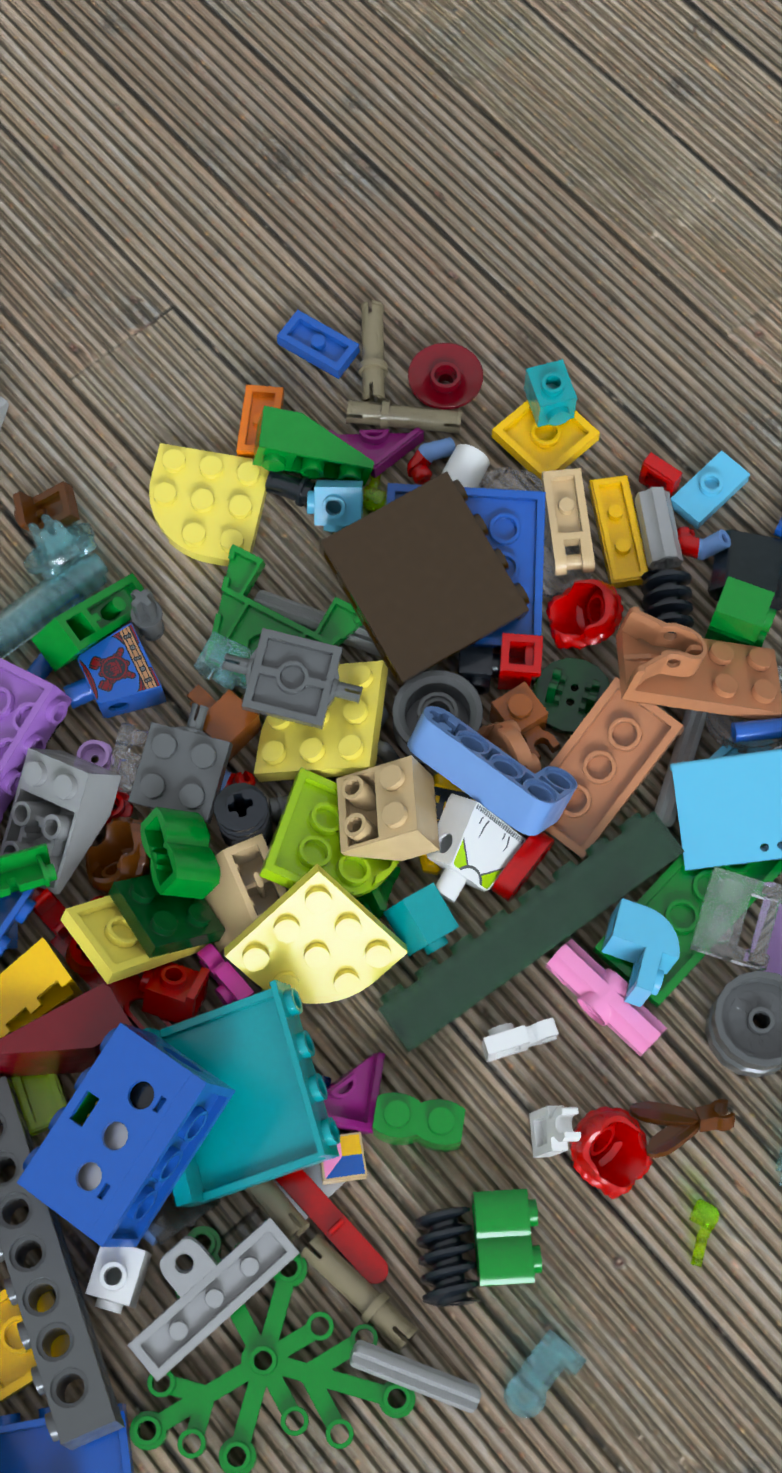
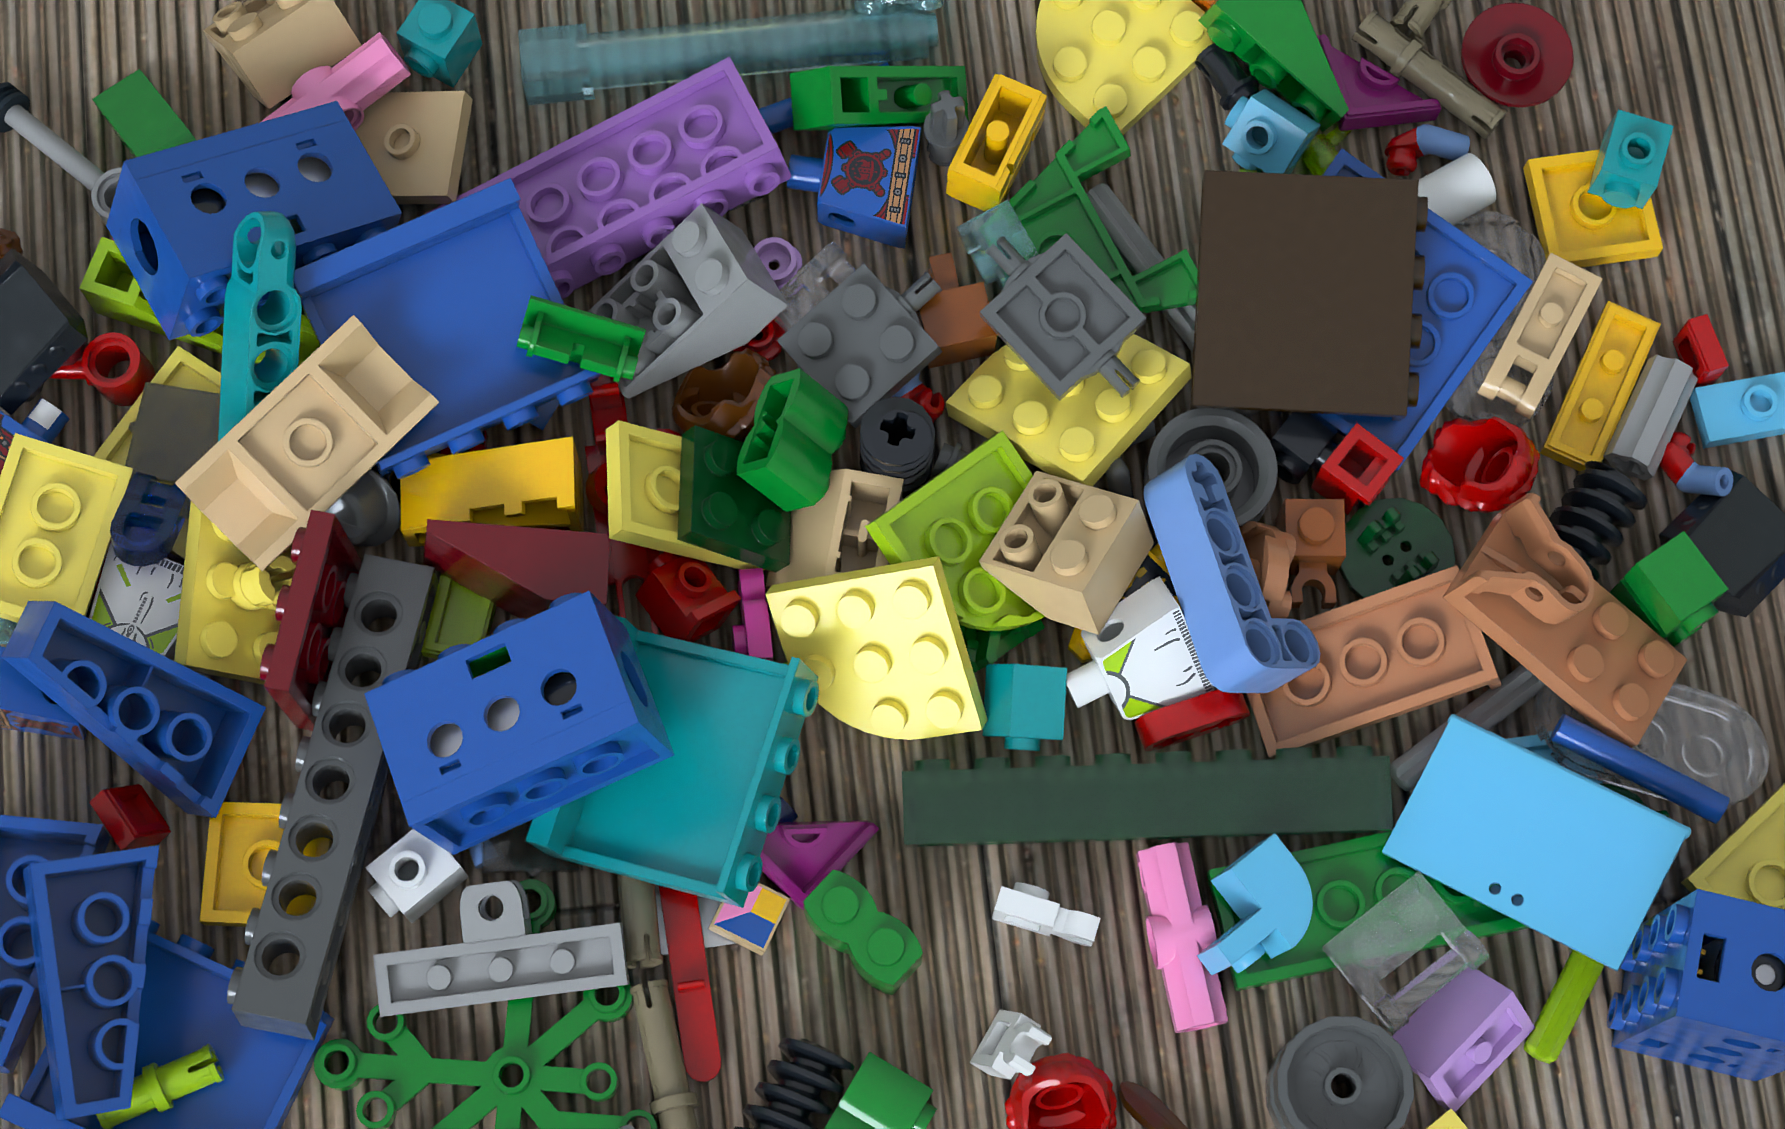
camera: 30 degrees right, 5 degrees up
(182, 605) = (996, 143): none -> yellow brick

